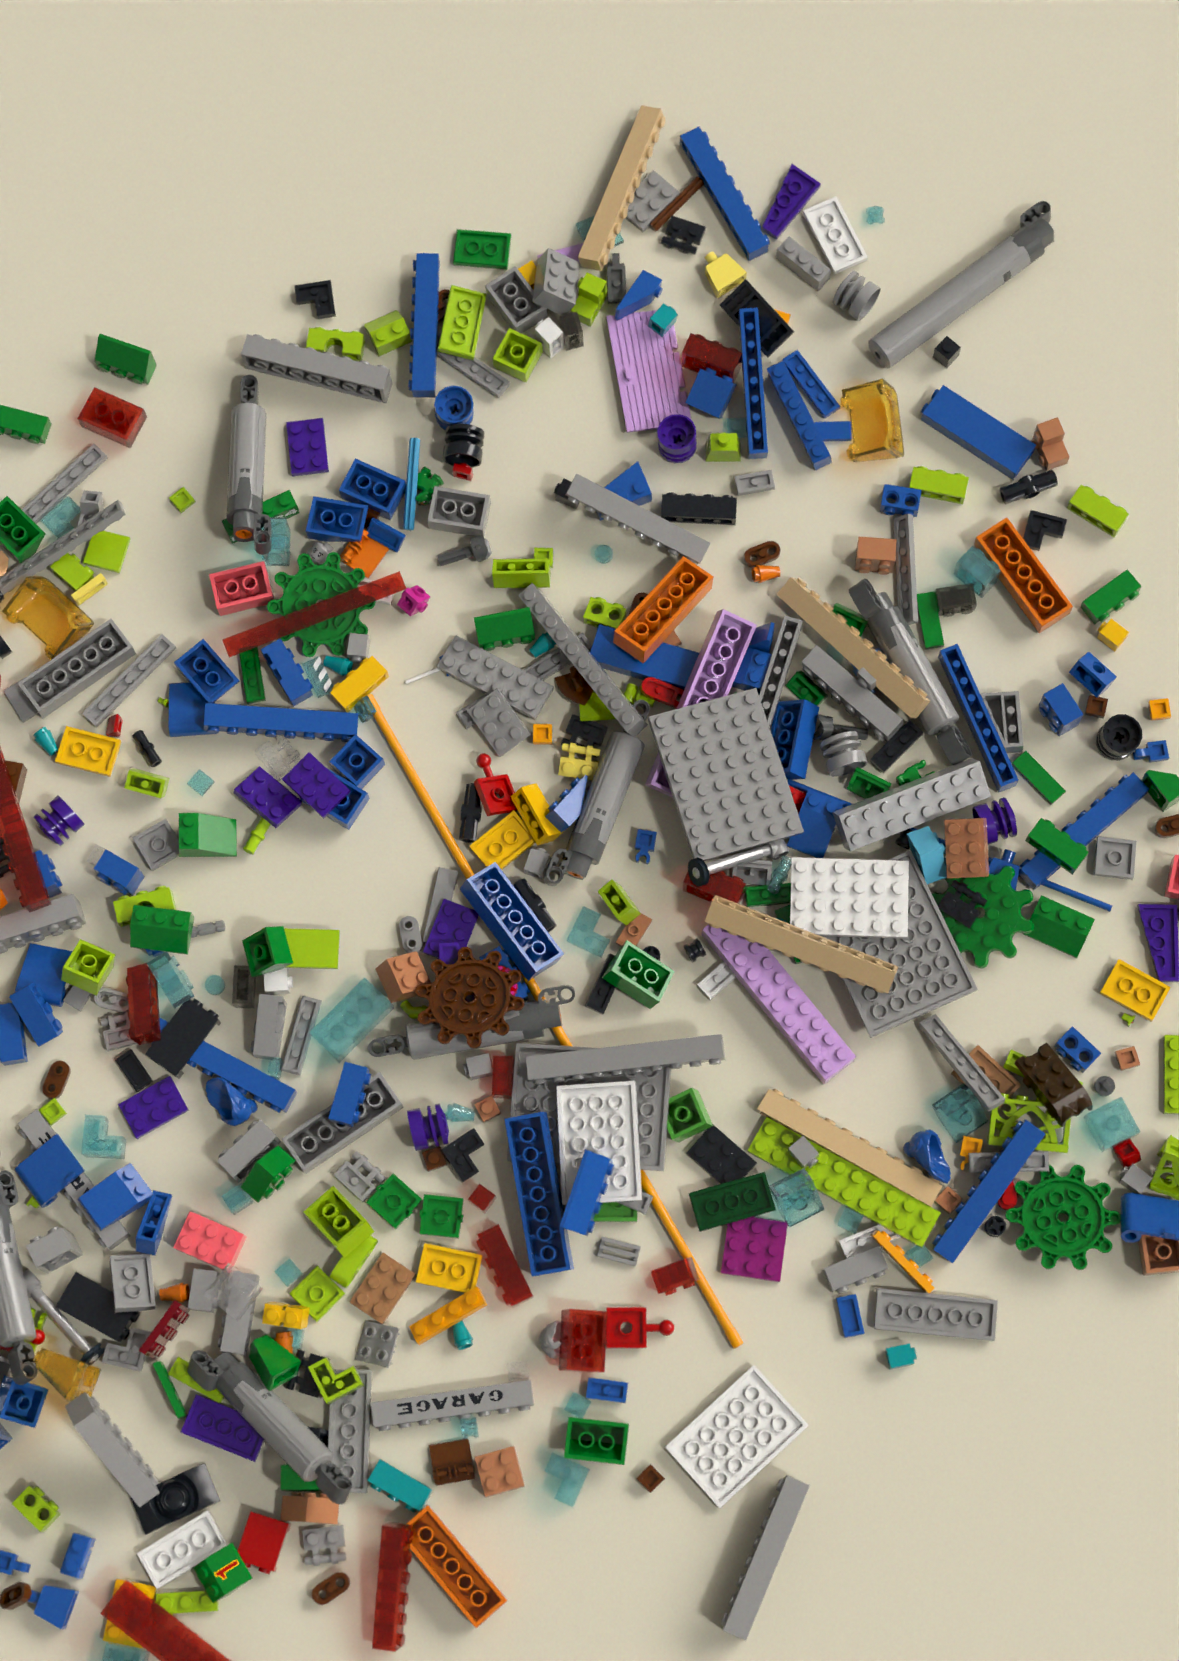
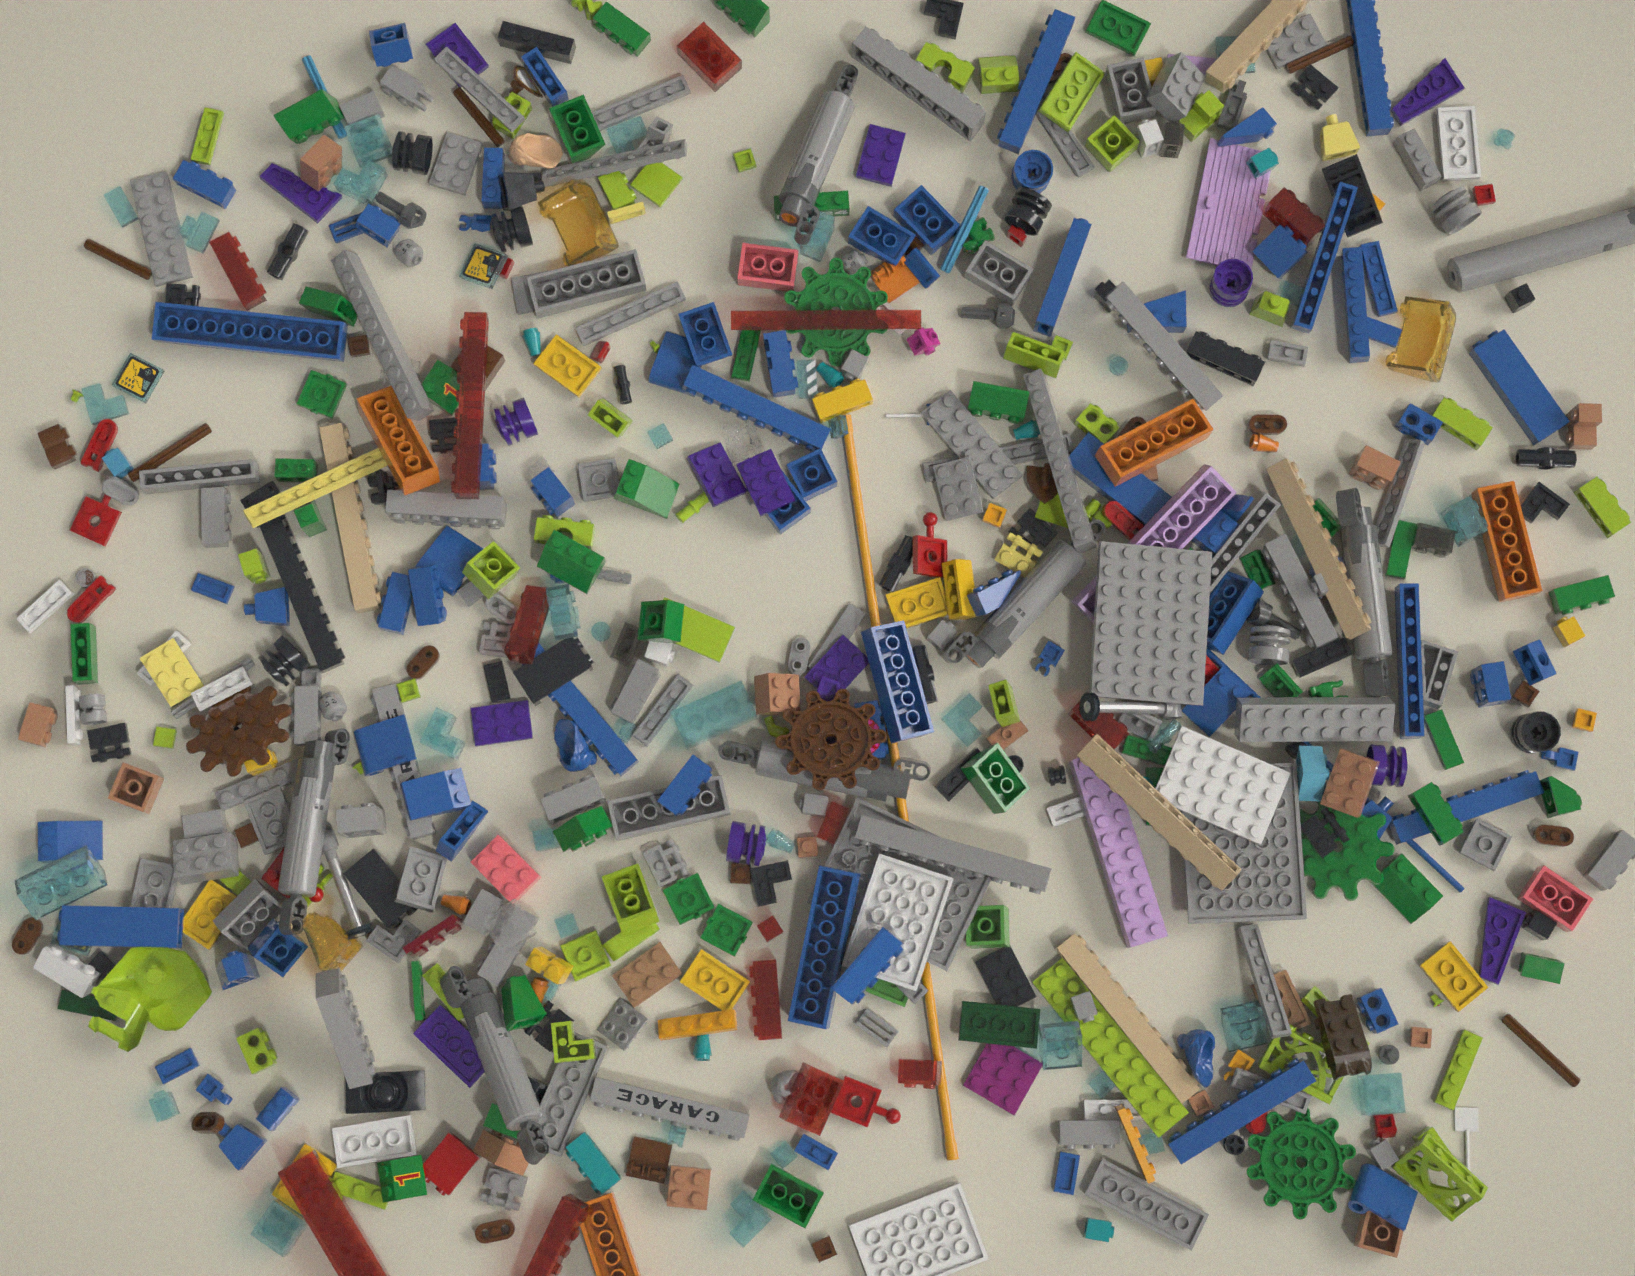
camera: 15 degrees right, 5 degrees up
(519, 492) = (1062, 277): none -> blue brick
(877, 272) = (1484, 194): none -> red plate

